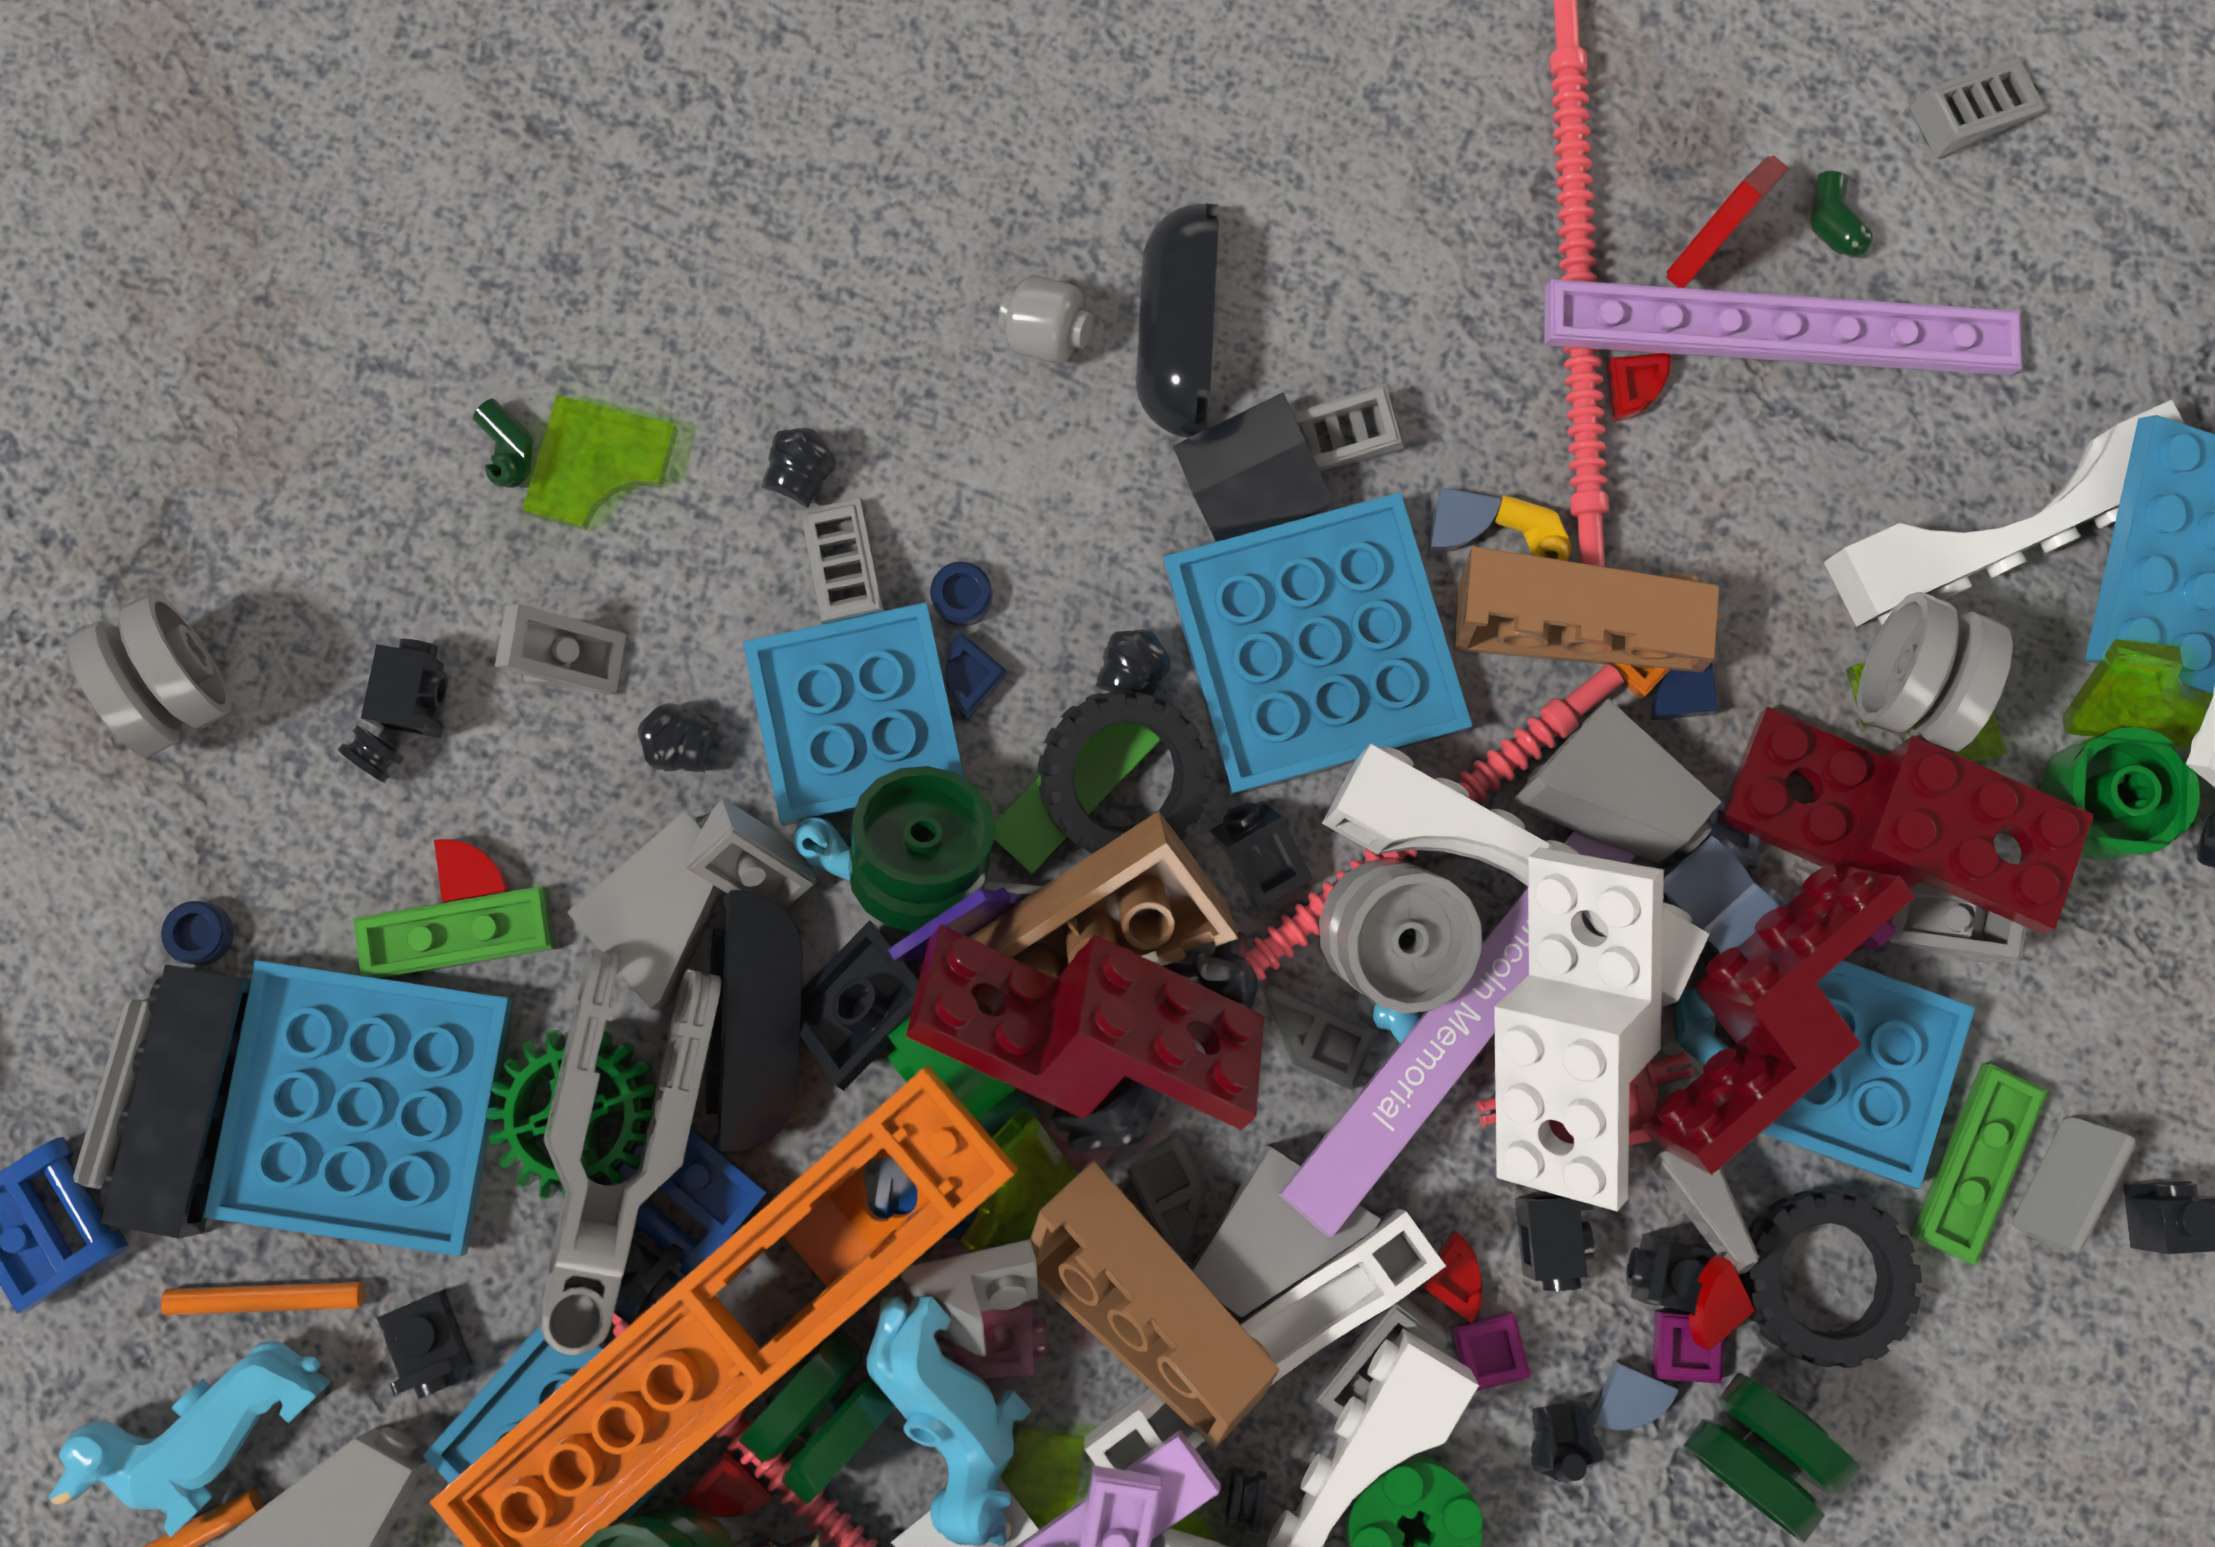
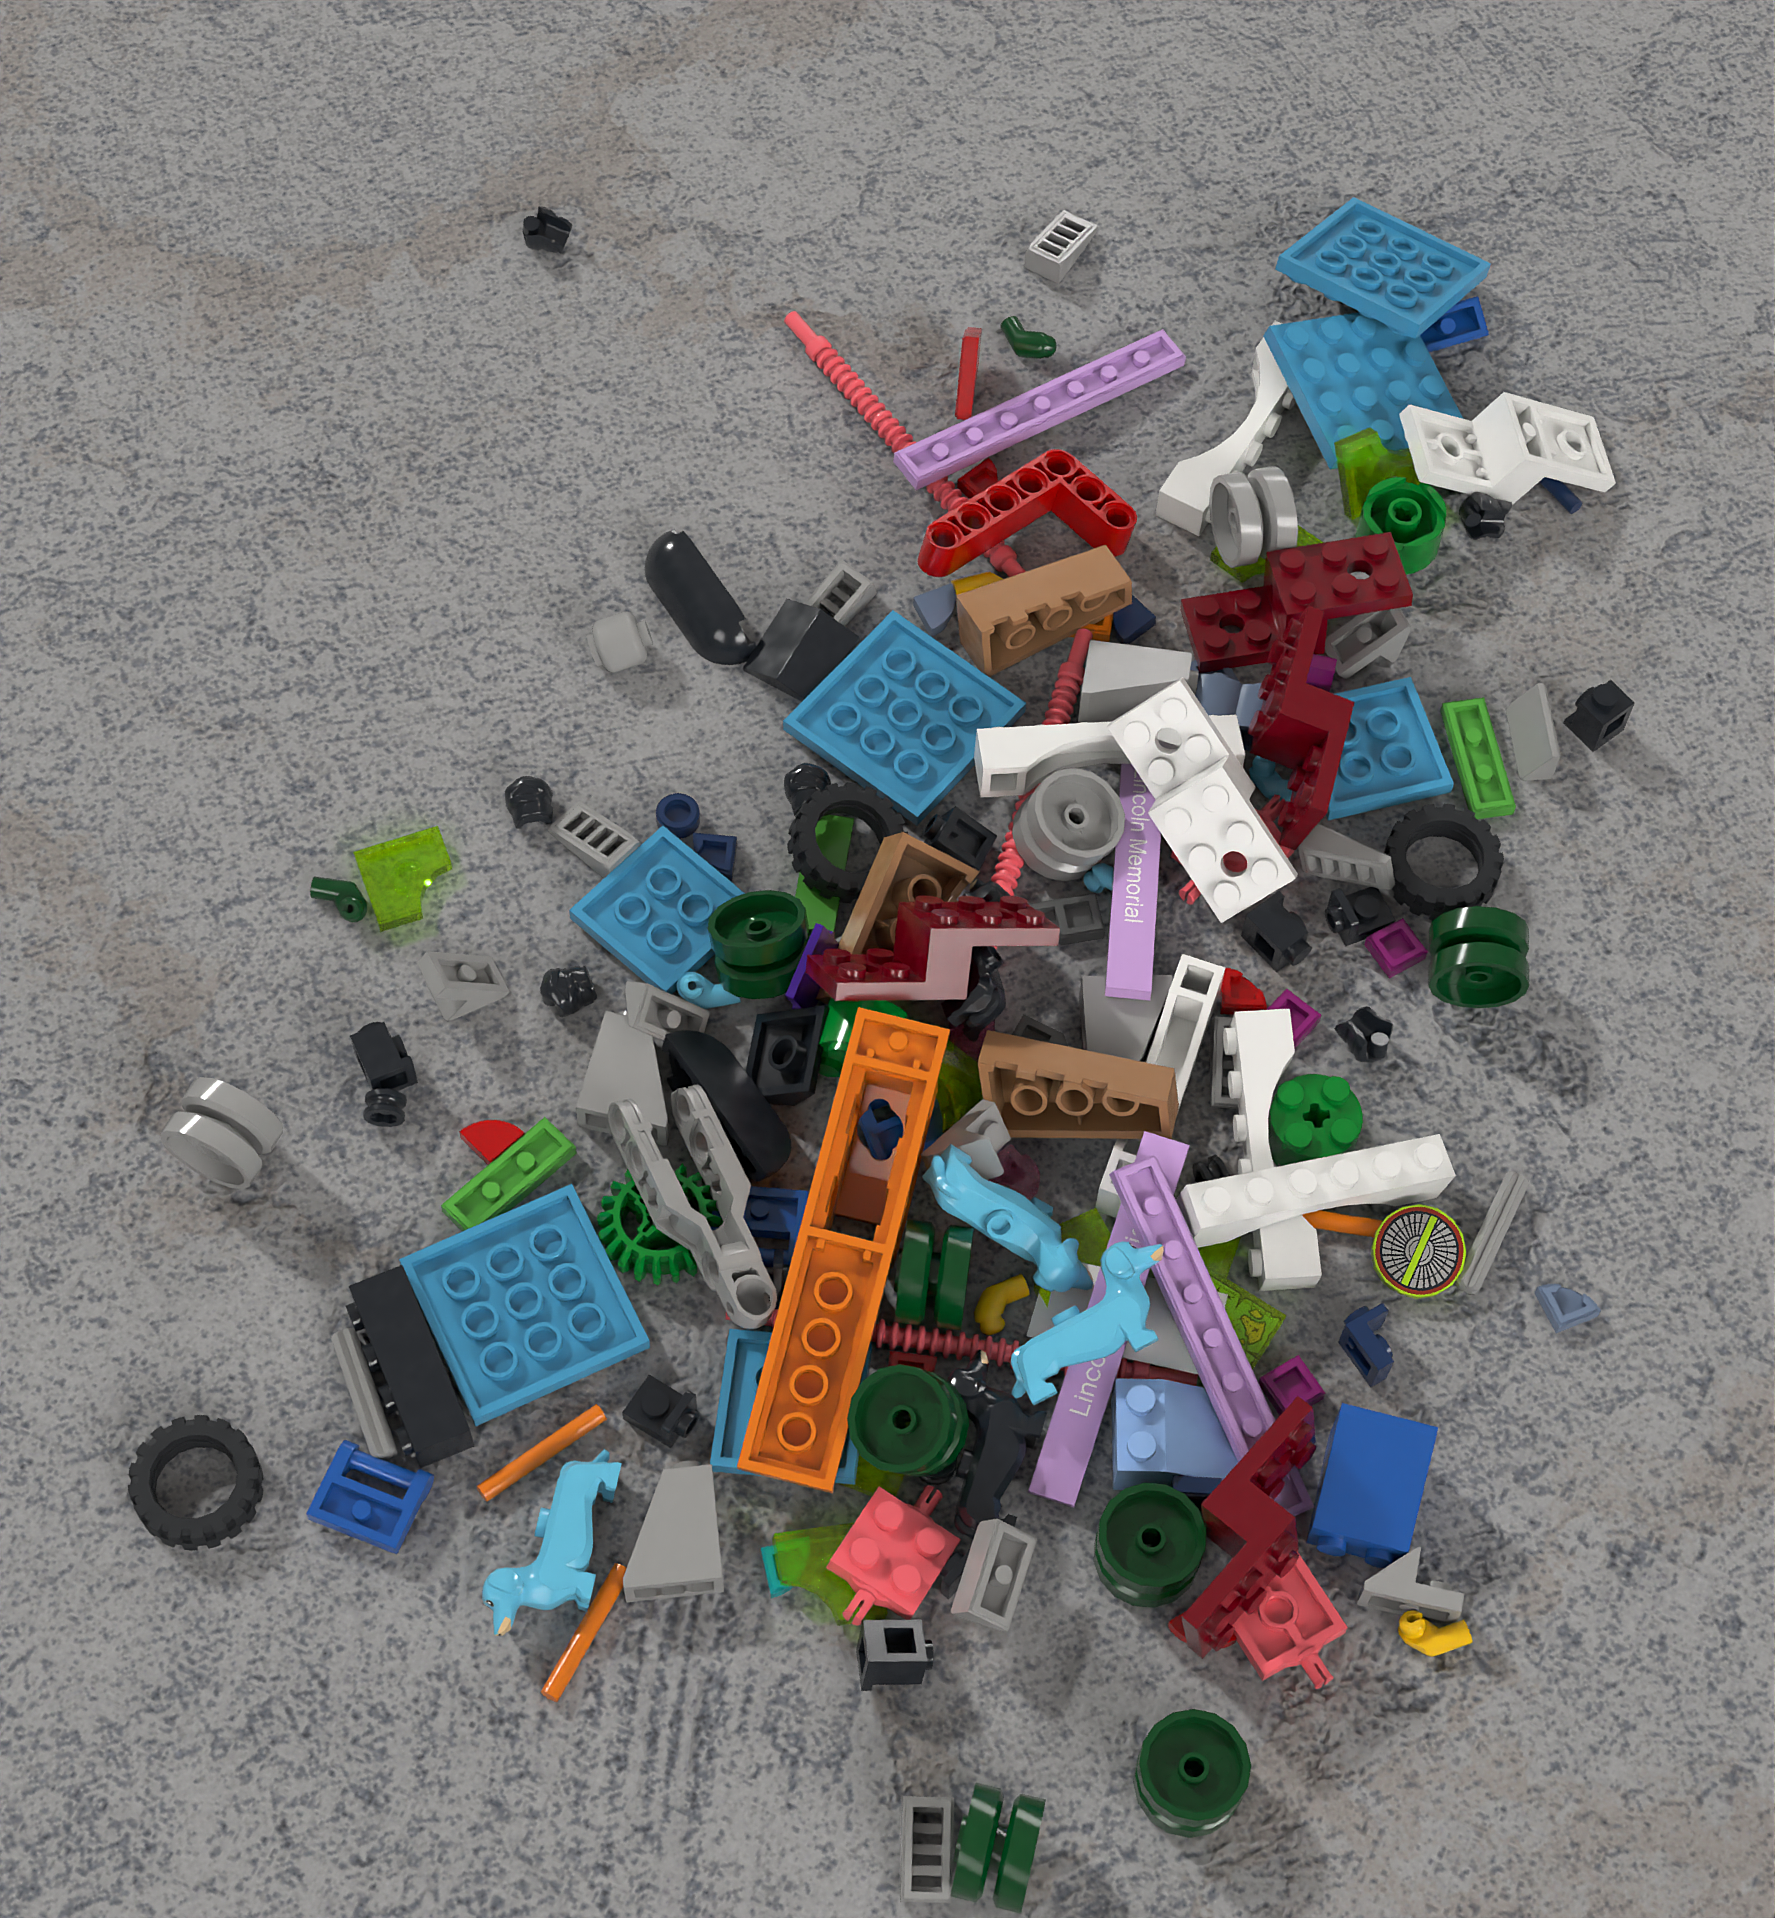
camera: 30 degrees left, 20 degrees down
(197, 933) = (341, 1273): dark blue tile -> none
(885, 1472) = (994, 1300): none -> yellow arm
(1631, 1399) = (1386, 991): sand blue tile -> none
(1649, 455) = (1045, 484): none -> red beam
(1720, 1304) = (1392, 904): red tile -> none

